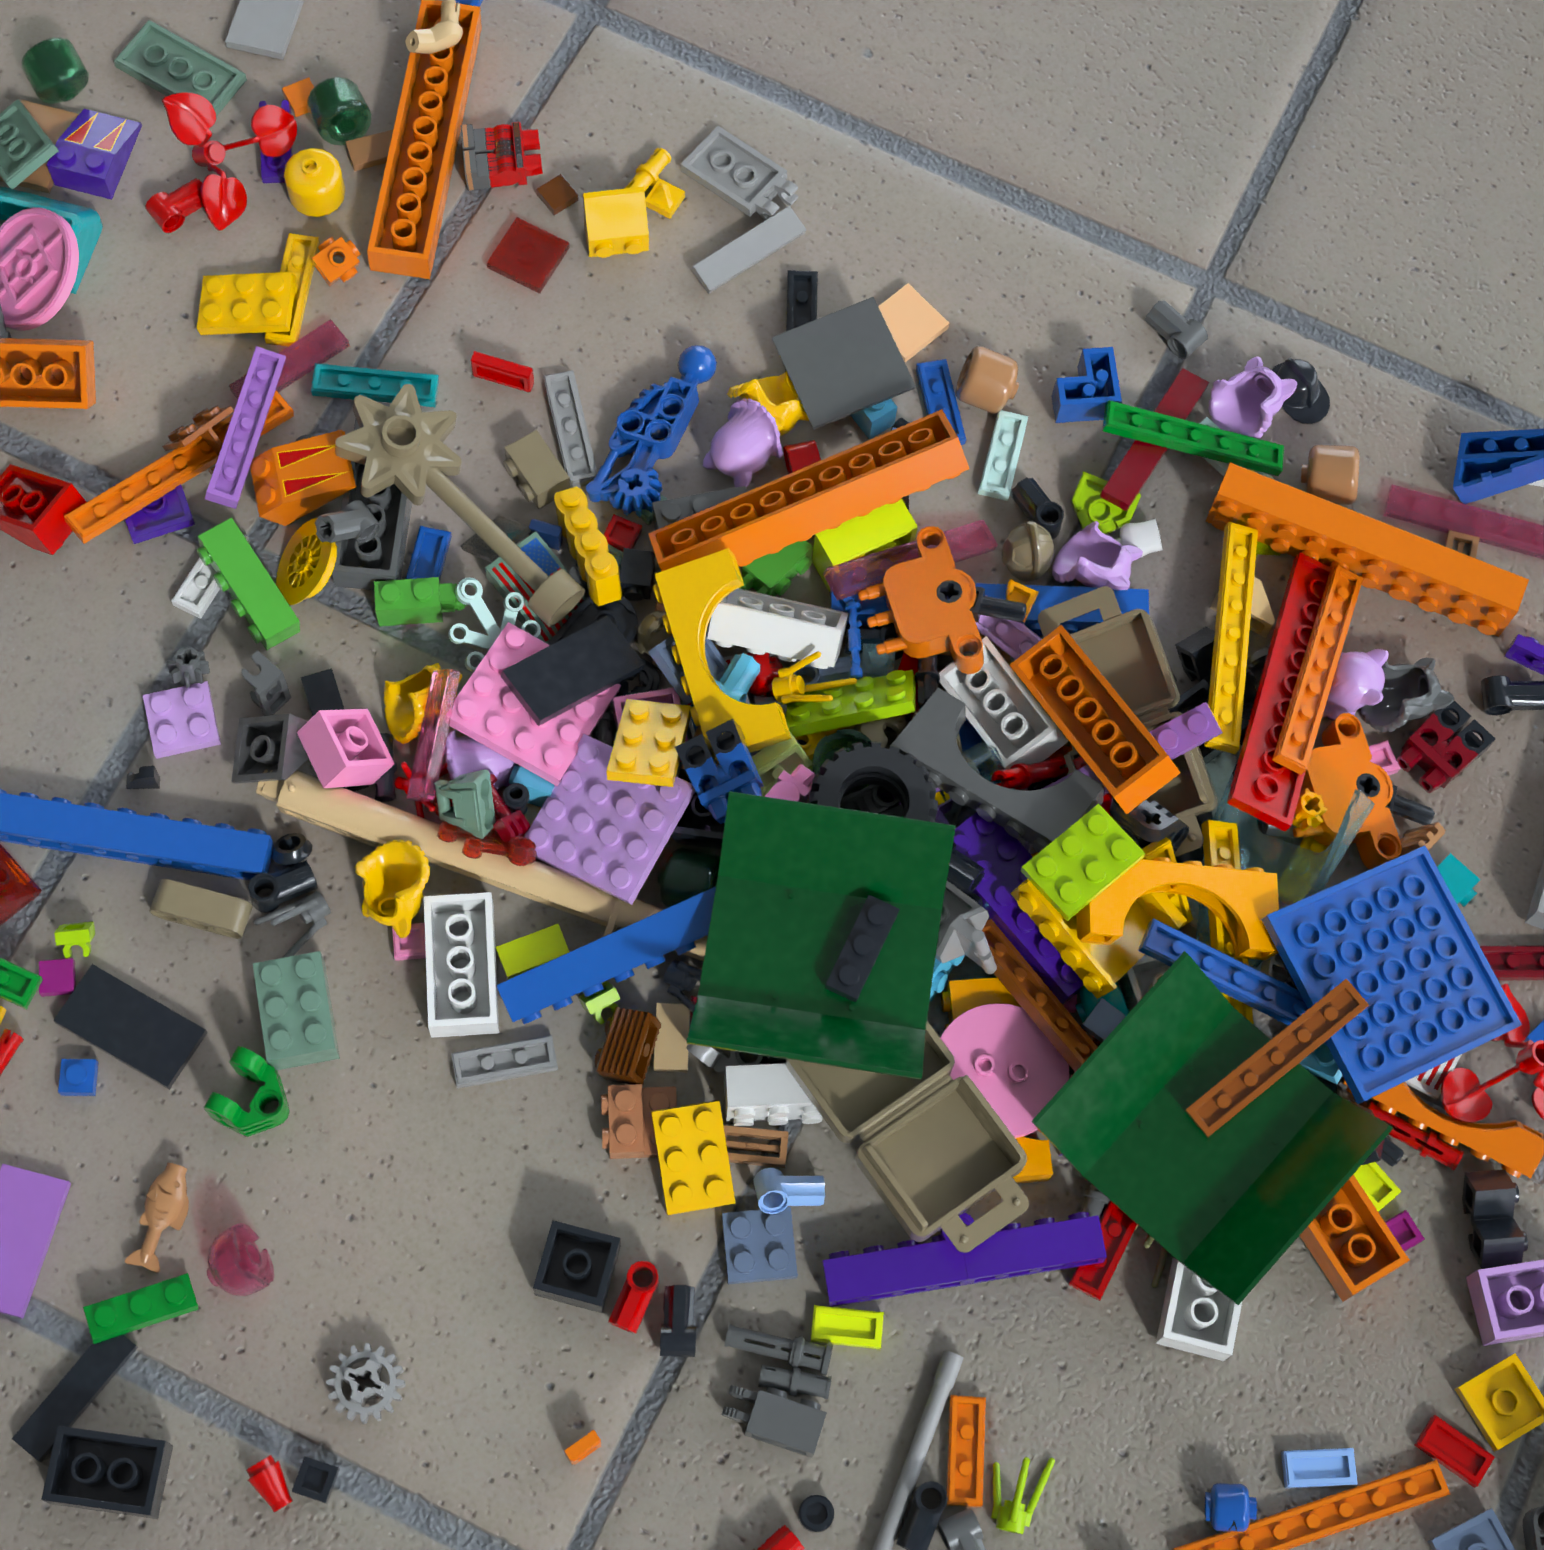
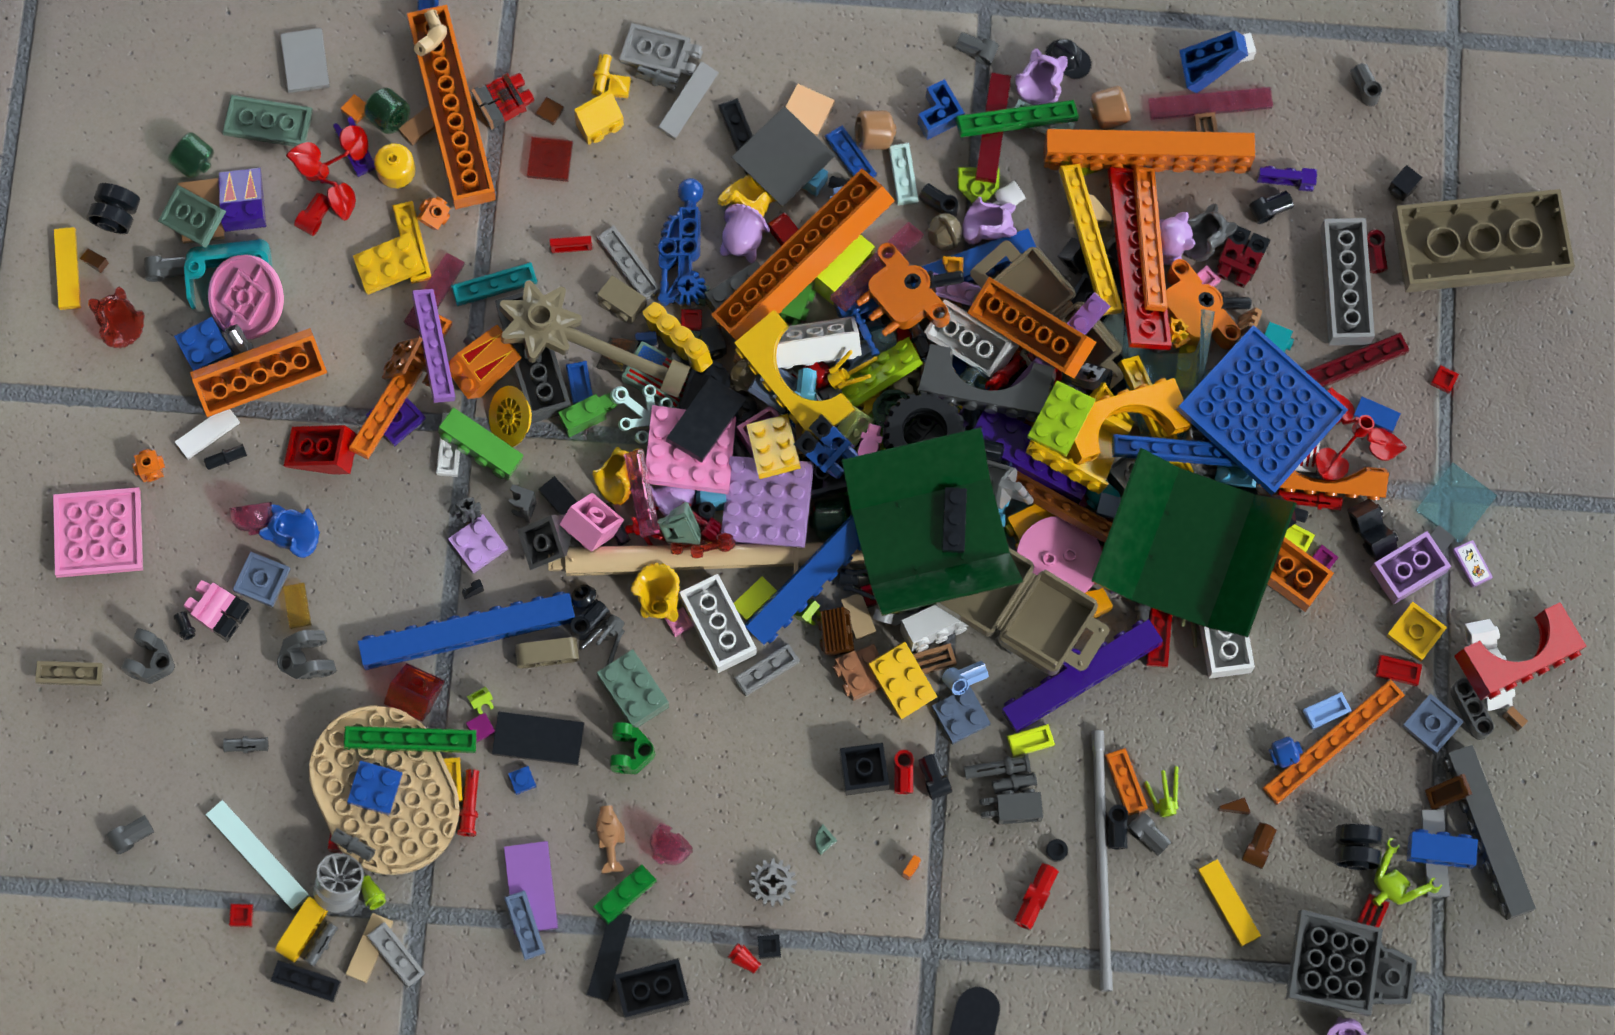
camera: 20 degrees left, 5 degrees up
(351, 522) = (531, 382): dark grey piece -> none
(473, 1349) = (824, 839): none -> sand green tile
(720, 205) = (657, 78): none -> dark grey pin
(1276, 1058) = (1215, 487): dark orange plate -> none

